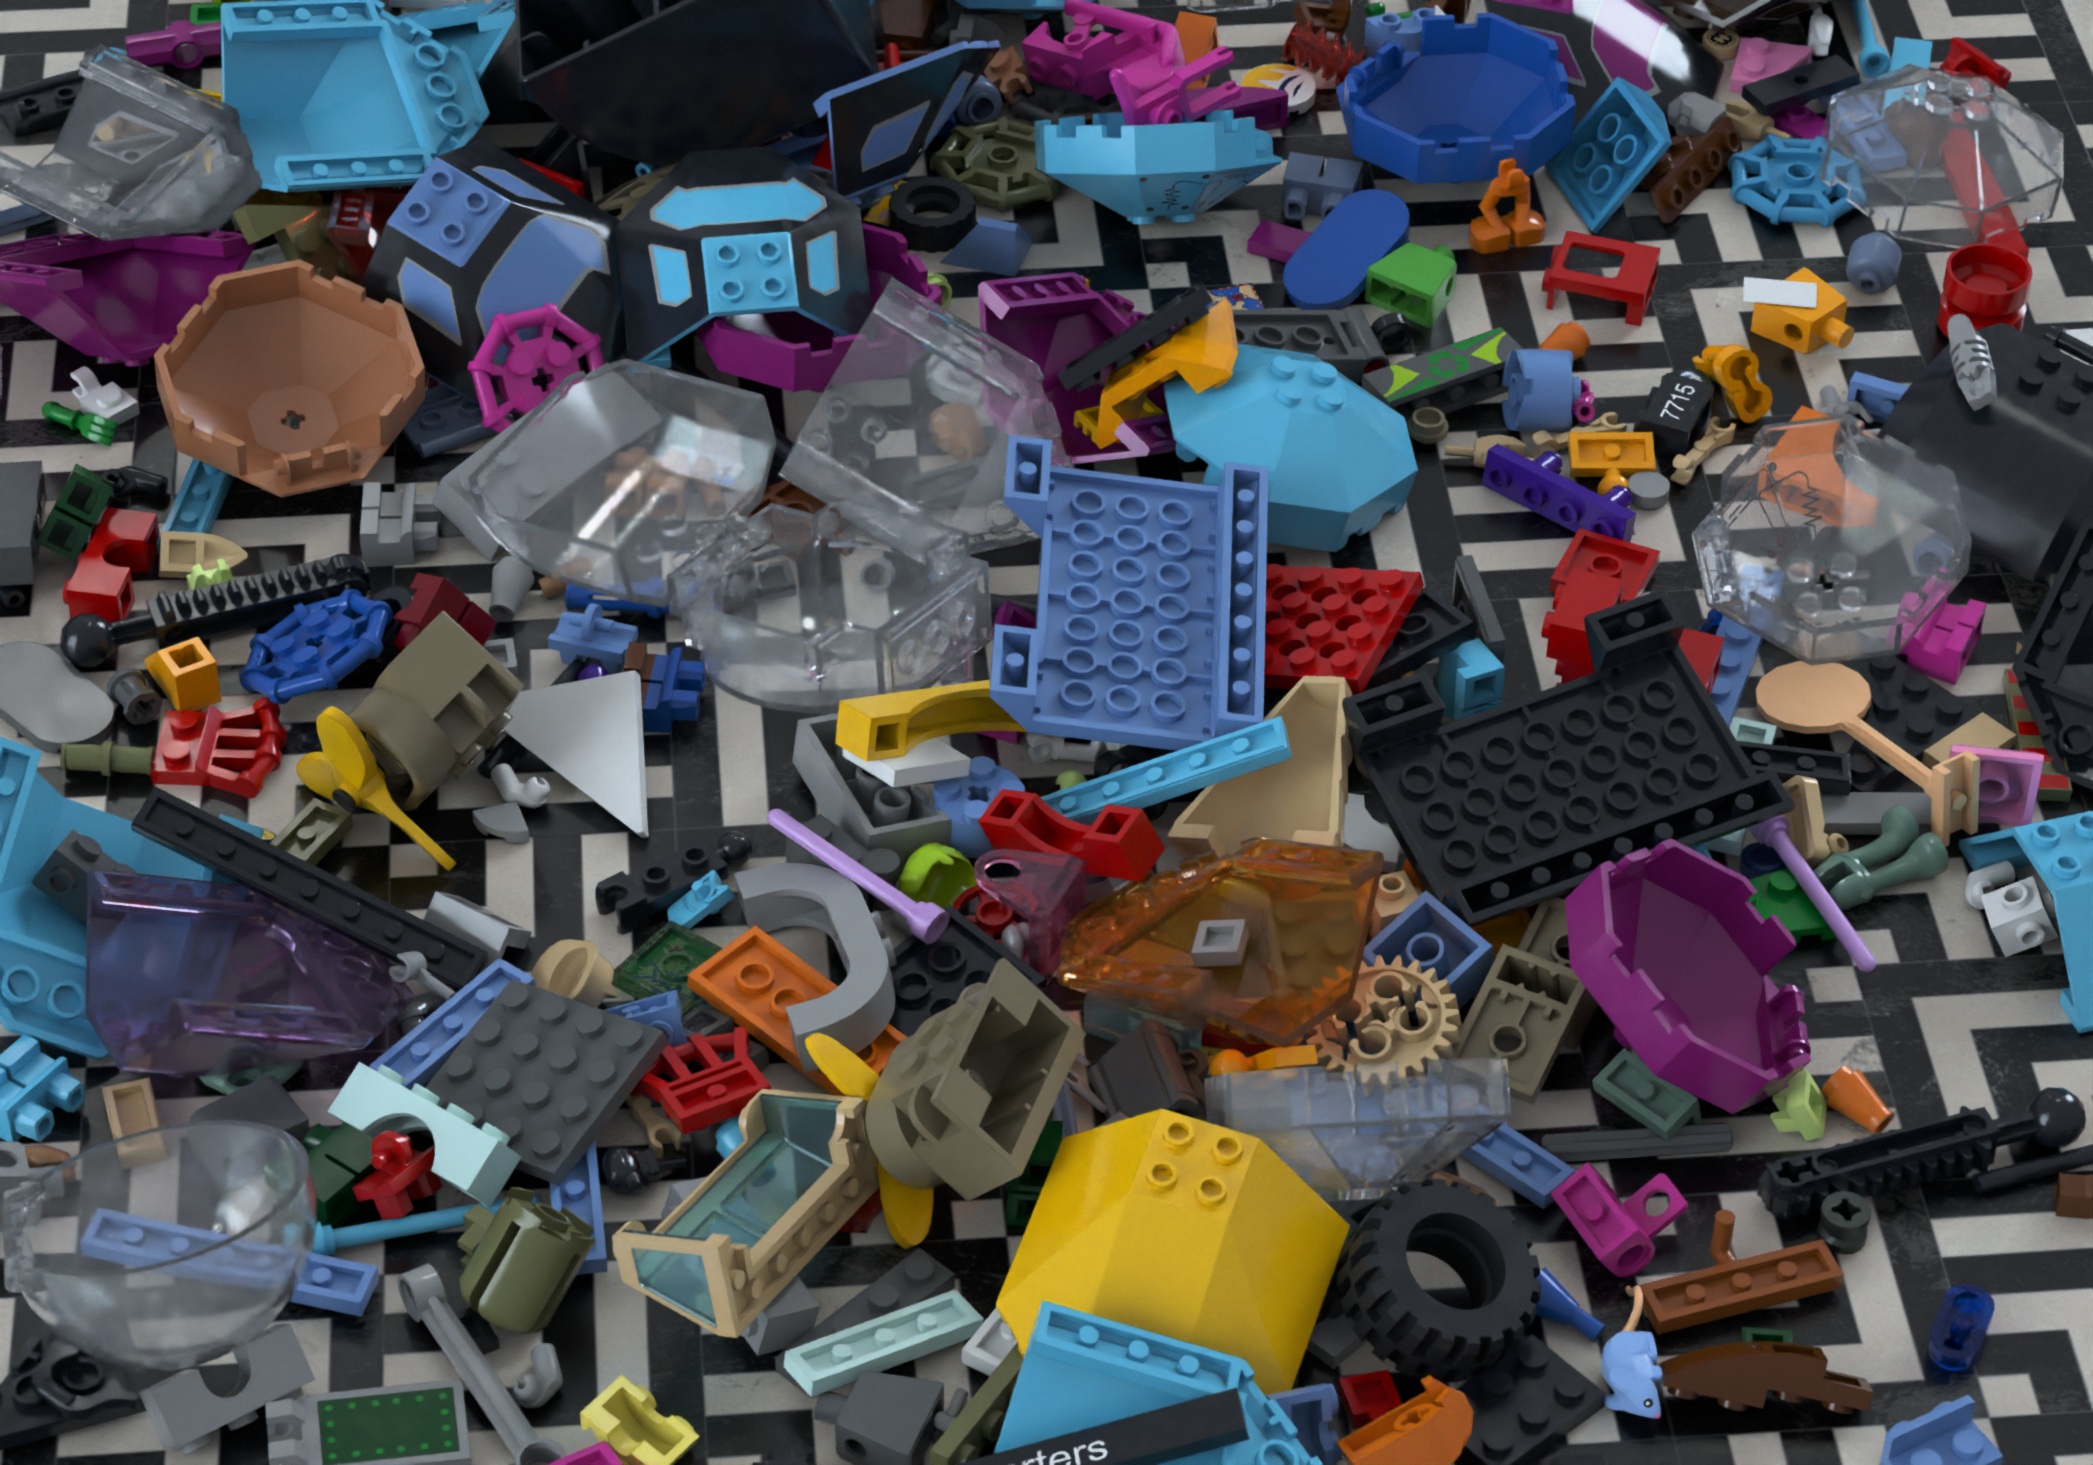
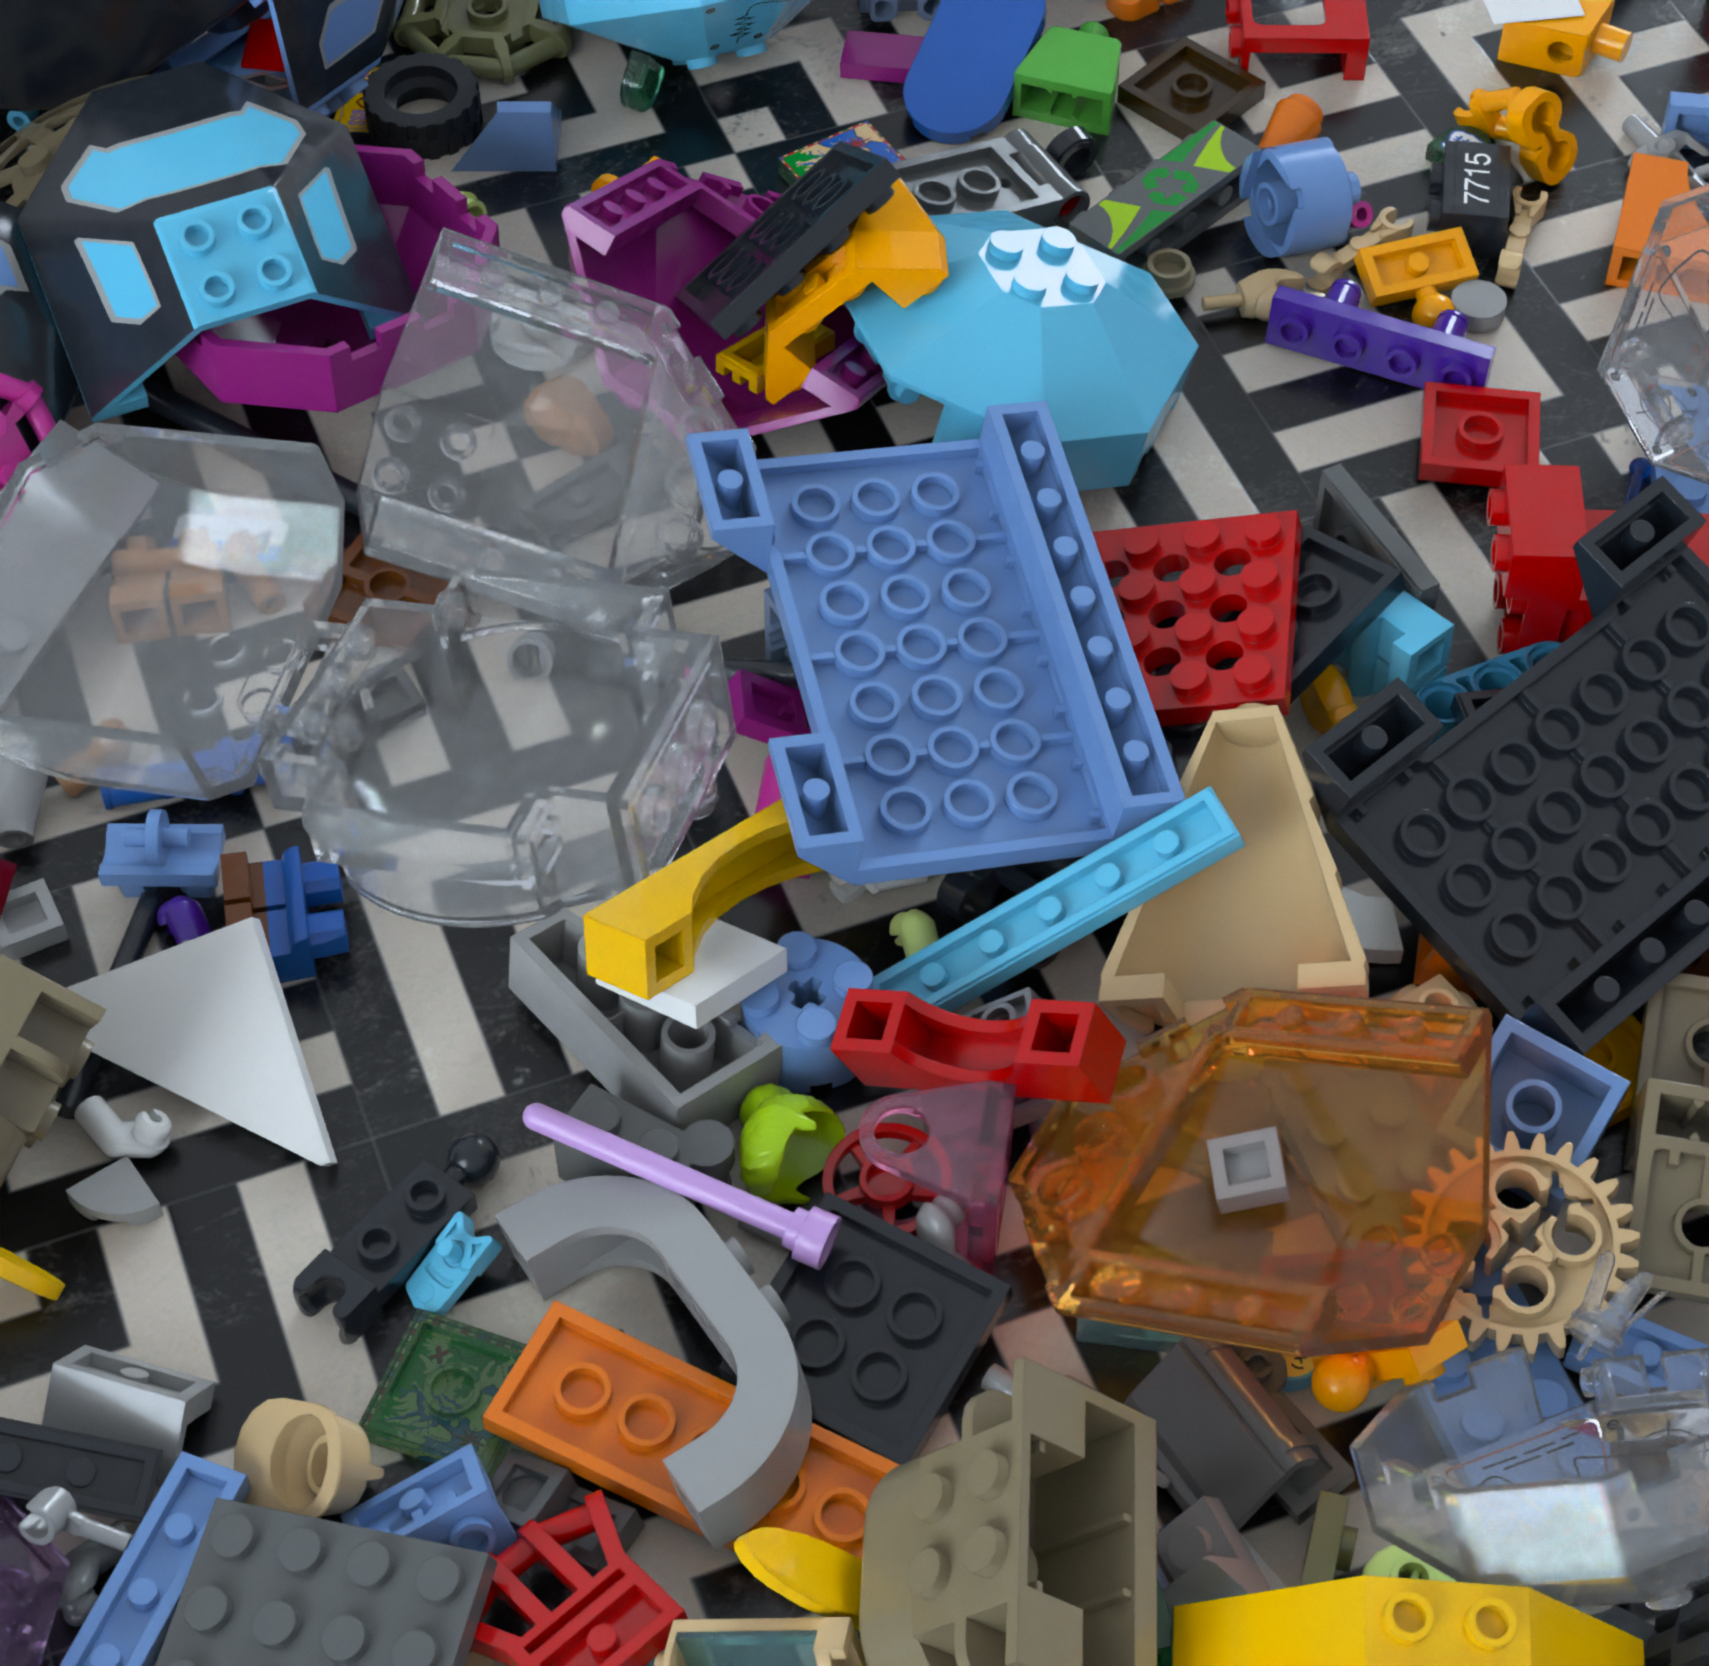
camera: 15 degrees left, 10 degrees up
(1095, 226) = (640, 82): none -> clear green tile
(1416, 1051) = (1607, 1327): none -> clear piece
(1505, 303) = (1190, 89): none -> dark brown tile

